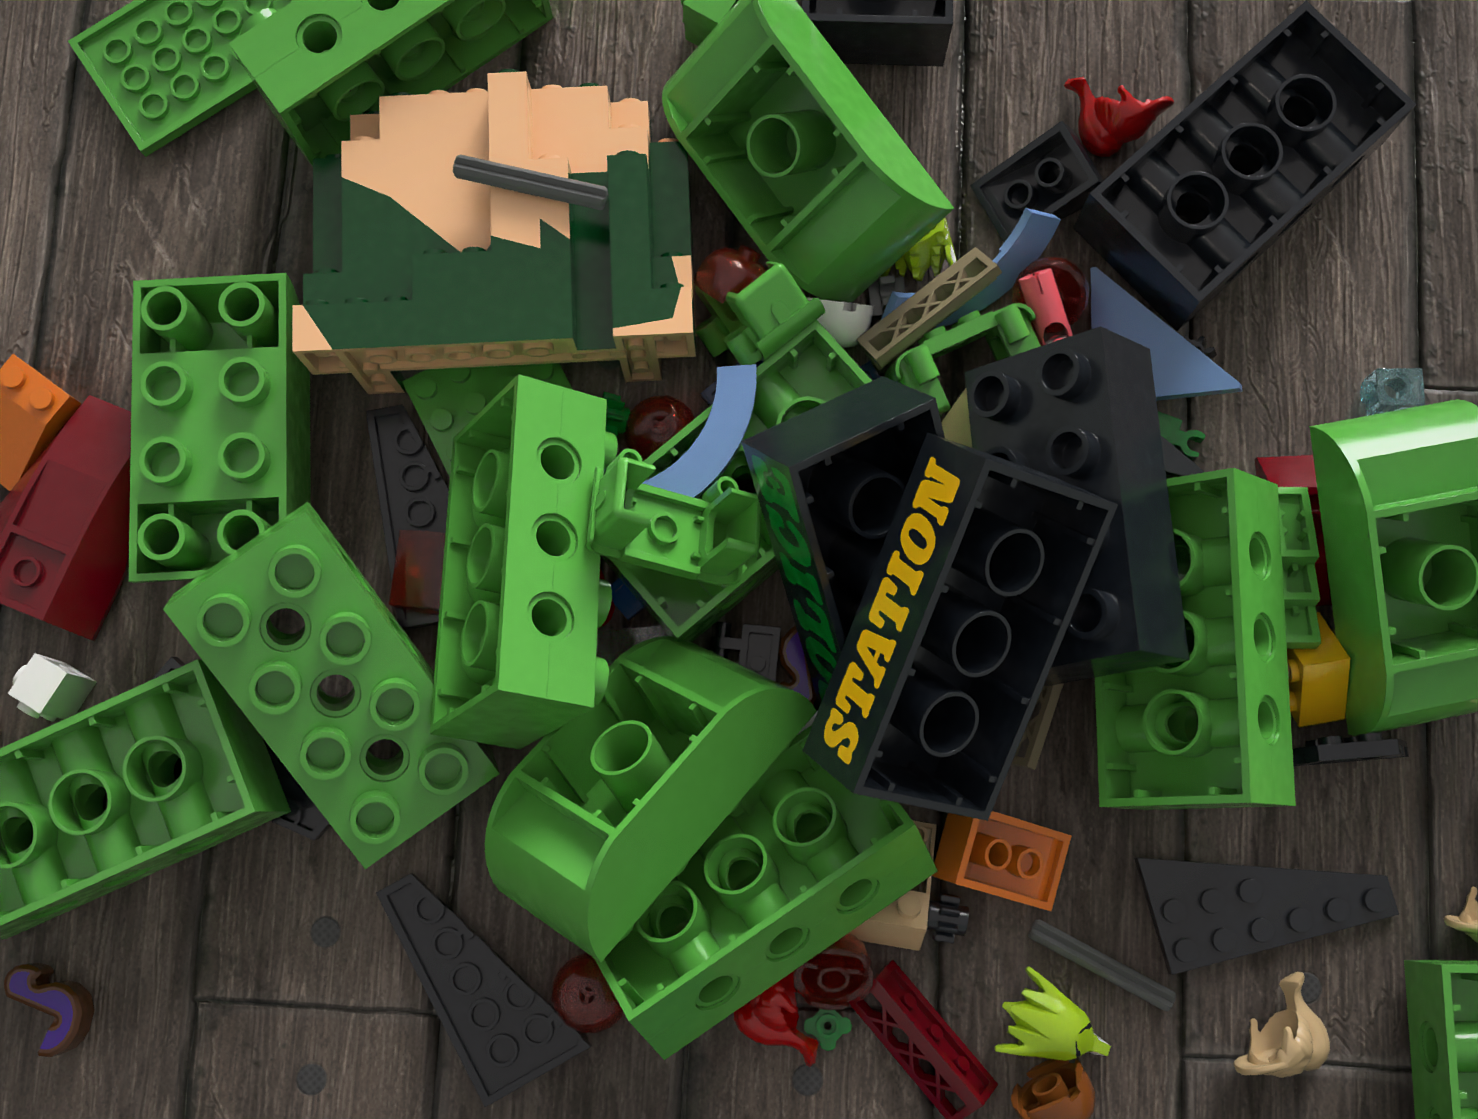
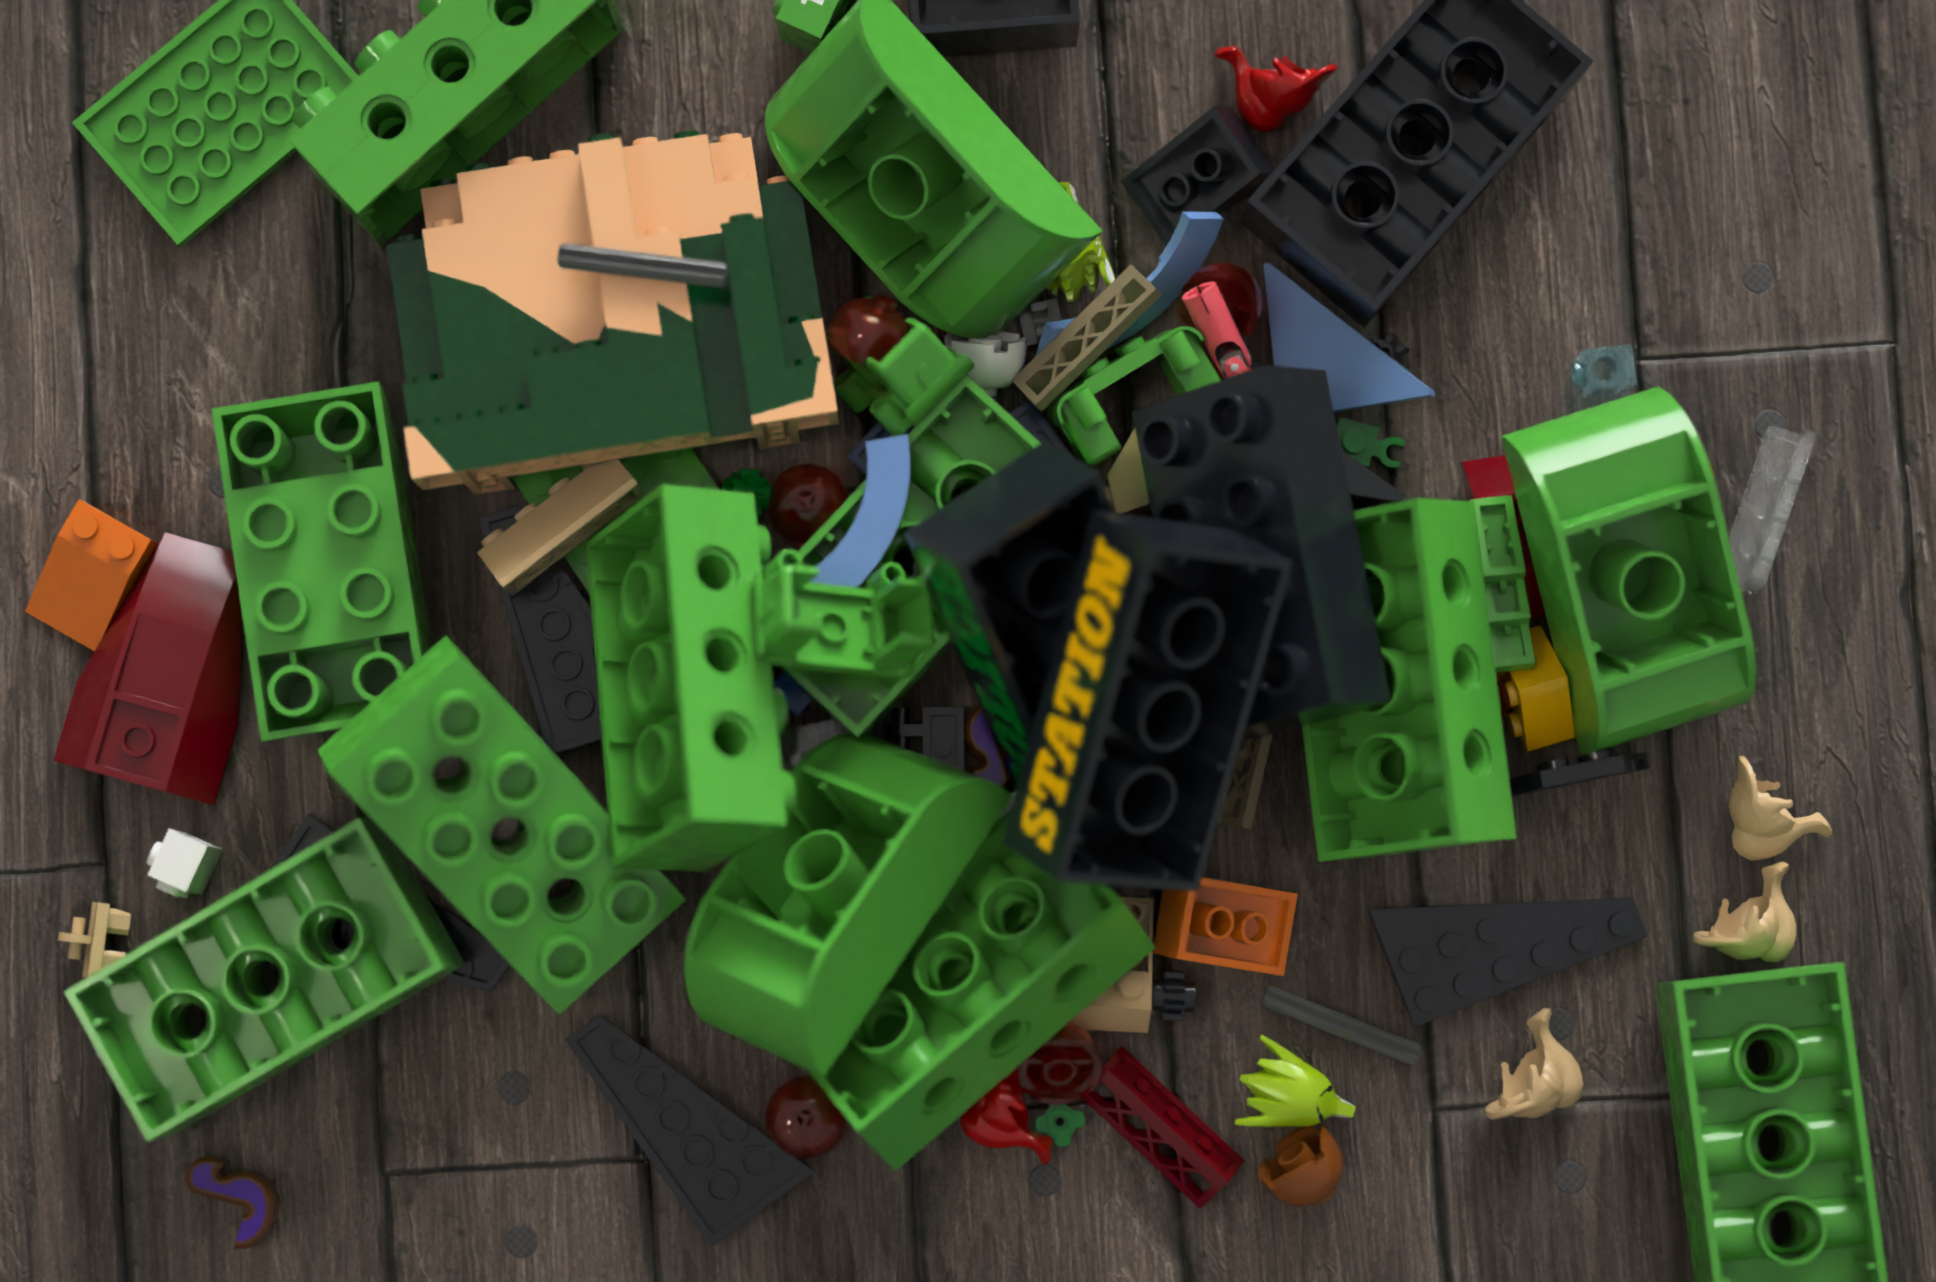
camera: 15 degrees left, 5 degrees up
(418, 570) = (567, 689): clear red slope -> none
(427, 425) = (559, 523): none -> tan slope

